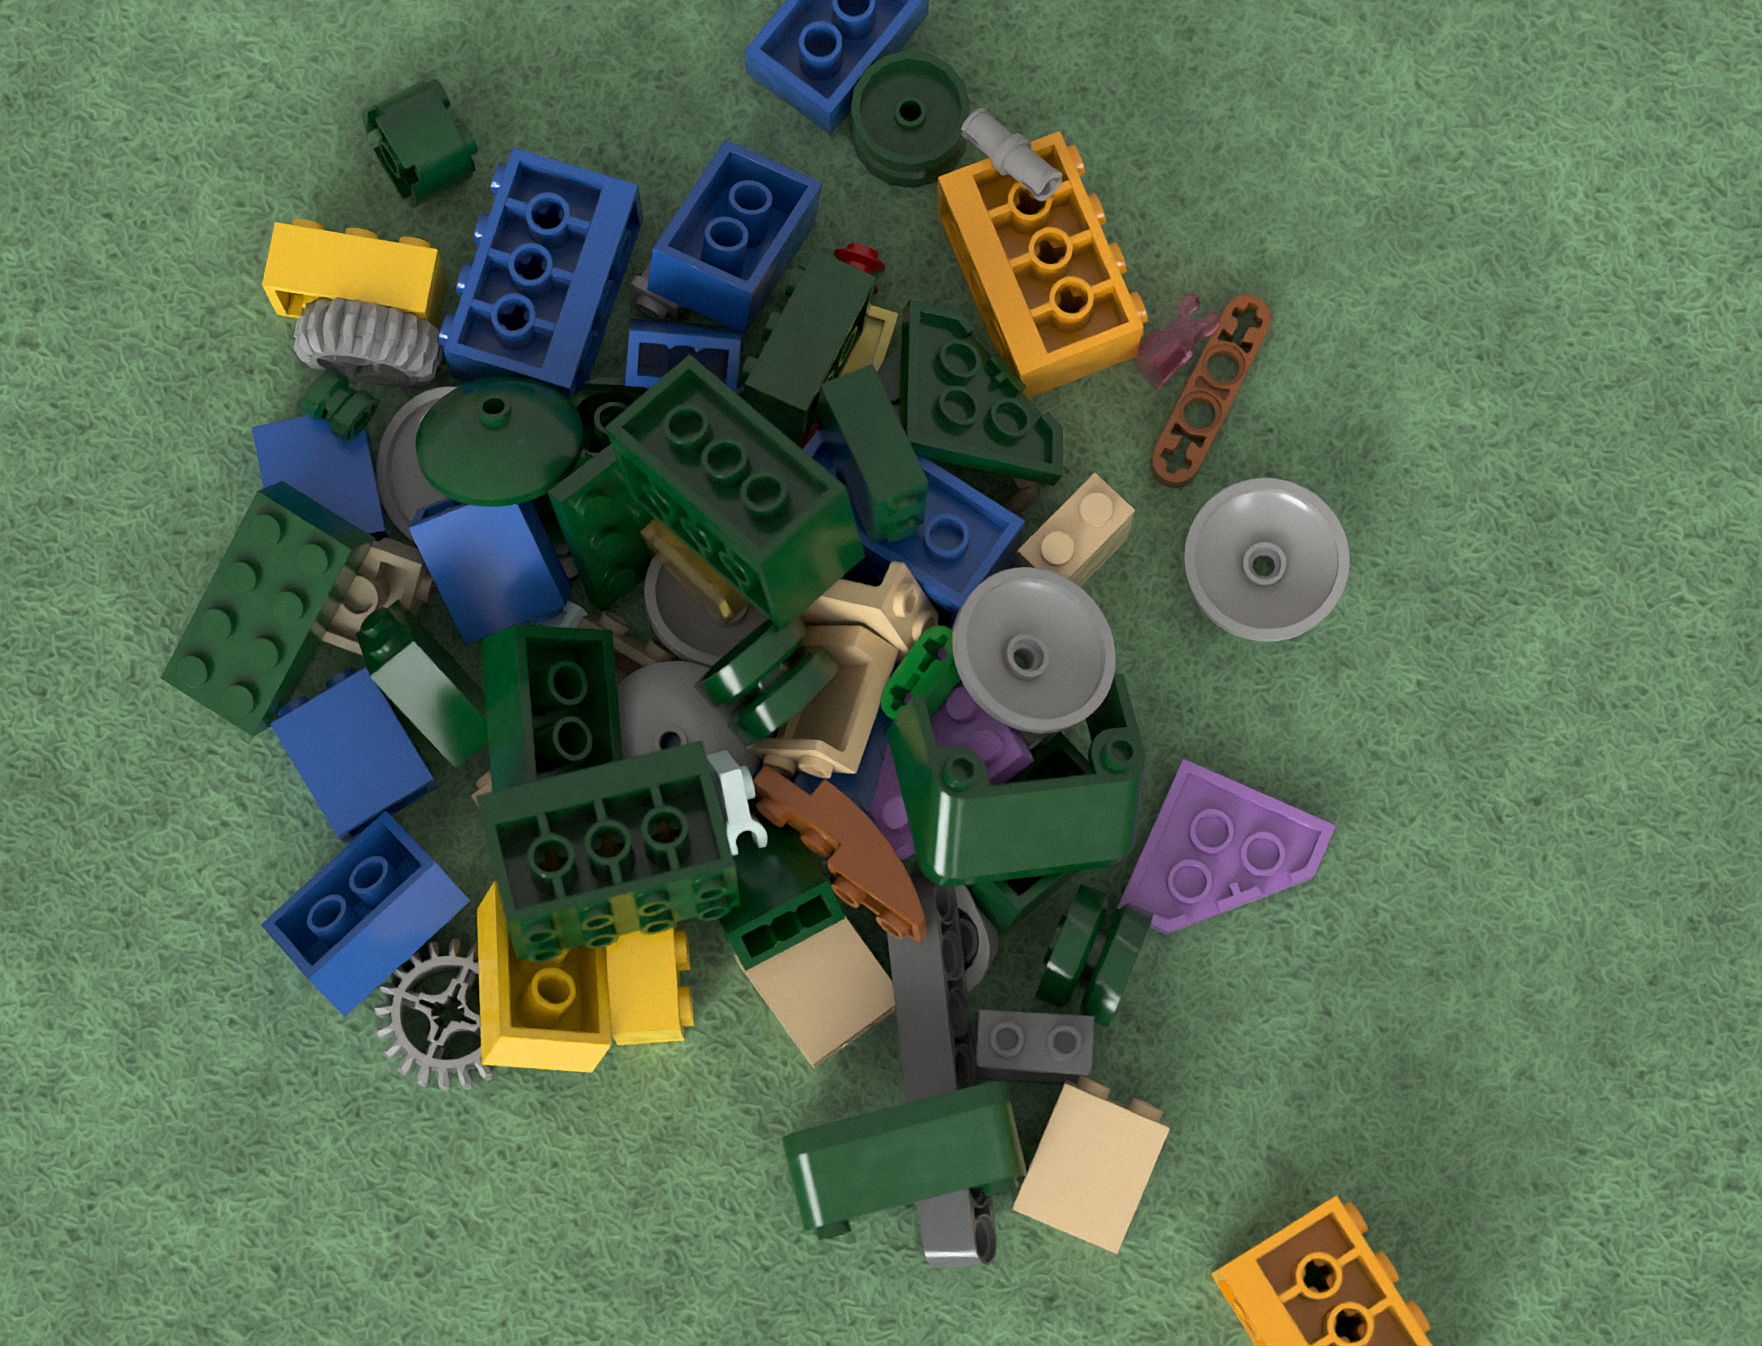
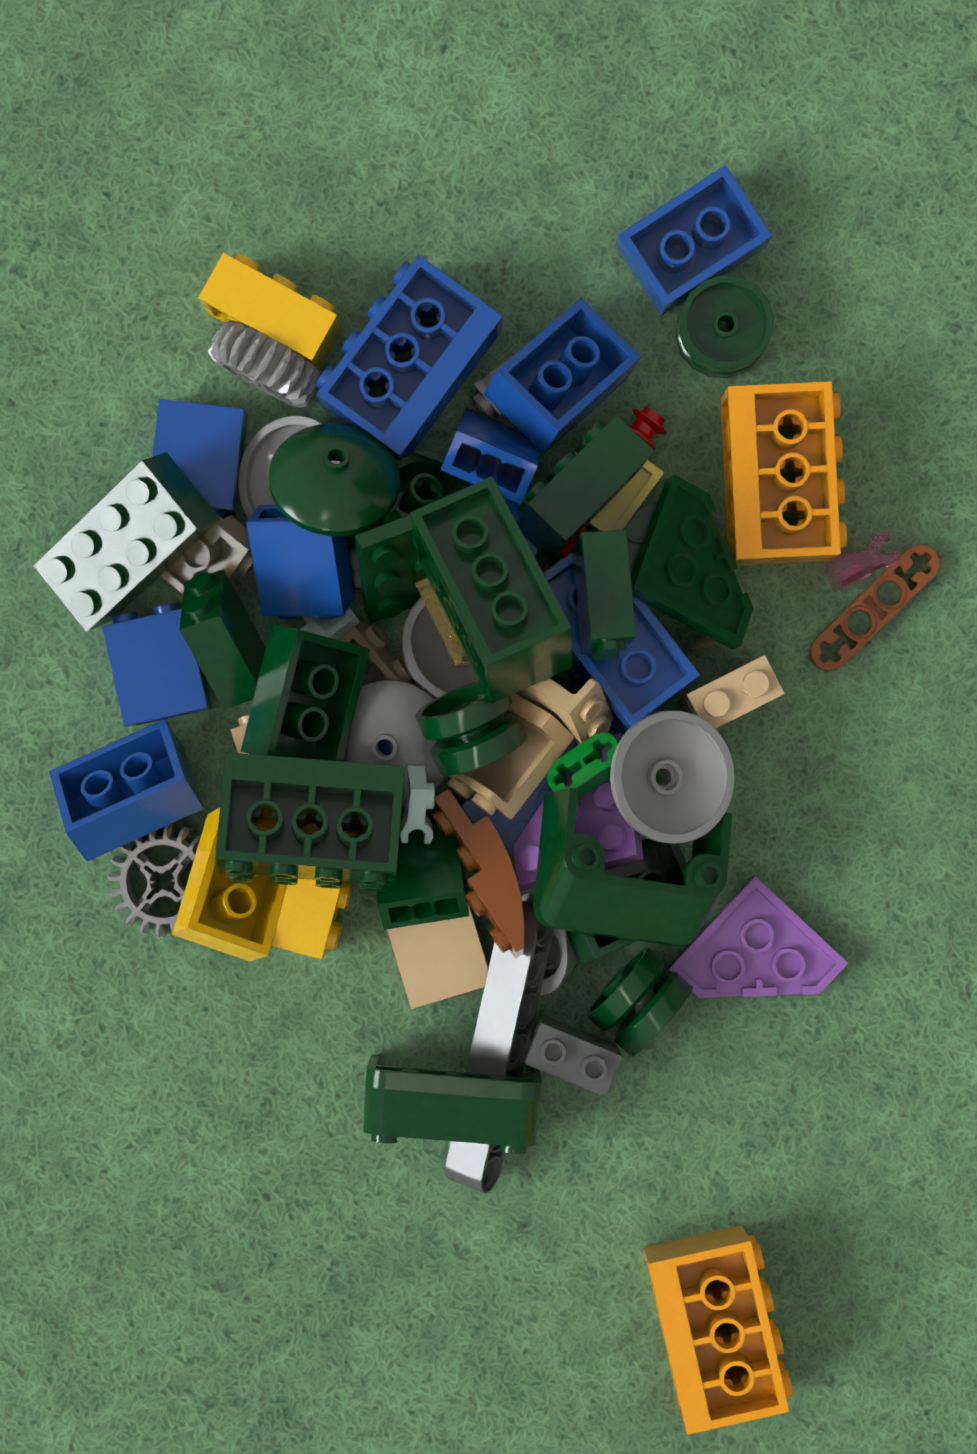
camera: 20 degrees right, 10 degrees up
(340, 406) = (229, 410): dark green wheel -> none
(420, 142) = (354, 221): dark green brick -> none
(1011, 154) = (789, 389): light grey pin -> none
(1092, 1164) = (587, 1149): tan panel -> none
(1272, 523) = (898, 744): light grey dish -> none

